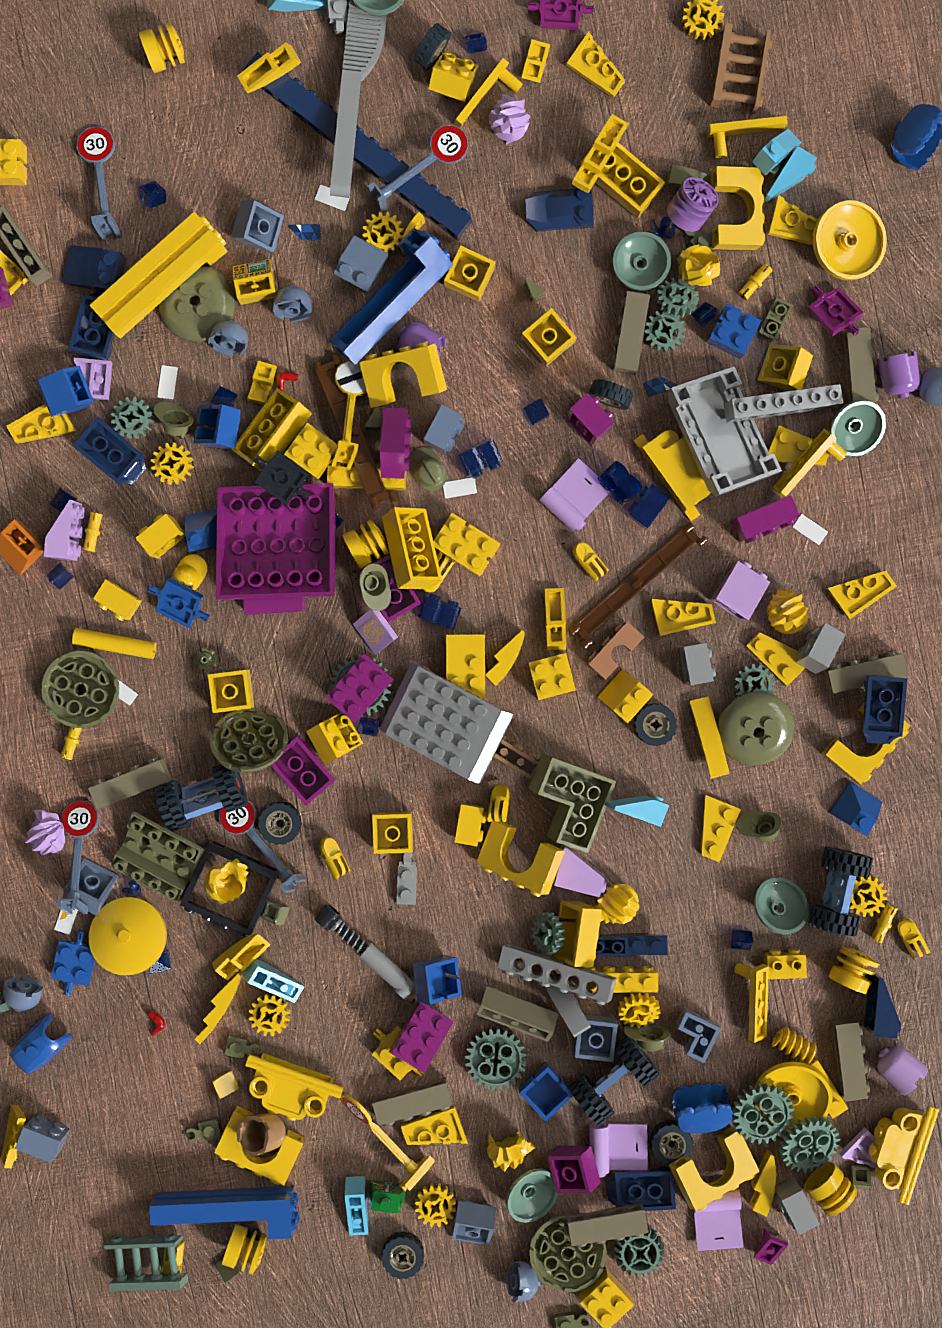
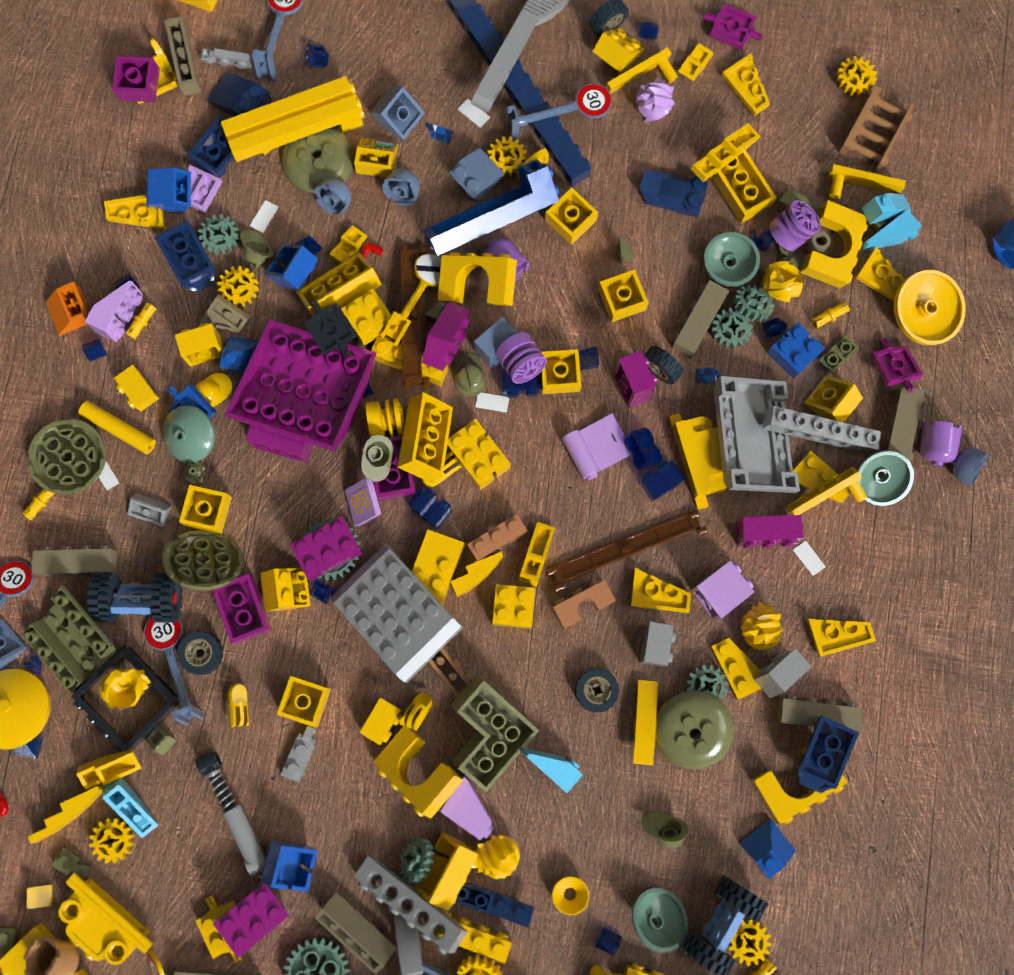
camera: 20 degrees right, 10 degrees down
(62, 231) = (227, 58): none -> light grey hinge
(172, 497) = (225, 315): none -> dark tan wing
(176, 709) = (148, 509): none -> light grey slope
(191, 619) = (196, 431): none -> sand green dish
(474, 438) = (521, 357): none -> medium lavender wheel
(513, 618) = (497, 537): none -> nougat arch
(515, 436) = (561, 372): none -> yellow brick
(589, 560) = (588, 511): yellow arm -> none
(625, 695) = (577, 651): yellow slope -> none
(699, 922) = (573, 906): none -> yellow piece
(717, 827) = (624, 814): yellow wing -> none
(721, 213) = (819, 242): none -> dark tan brick

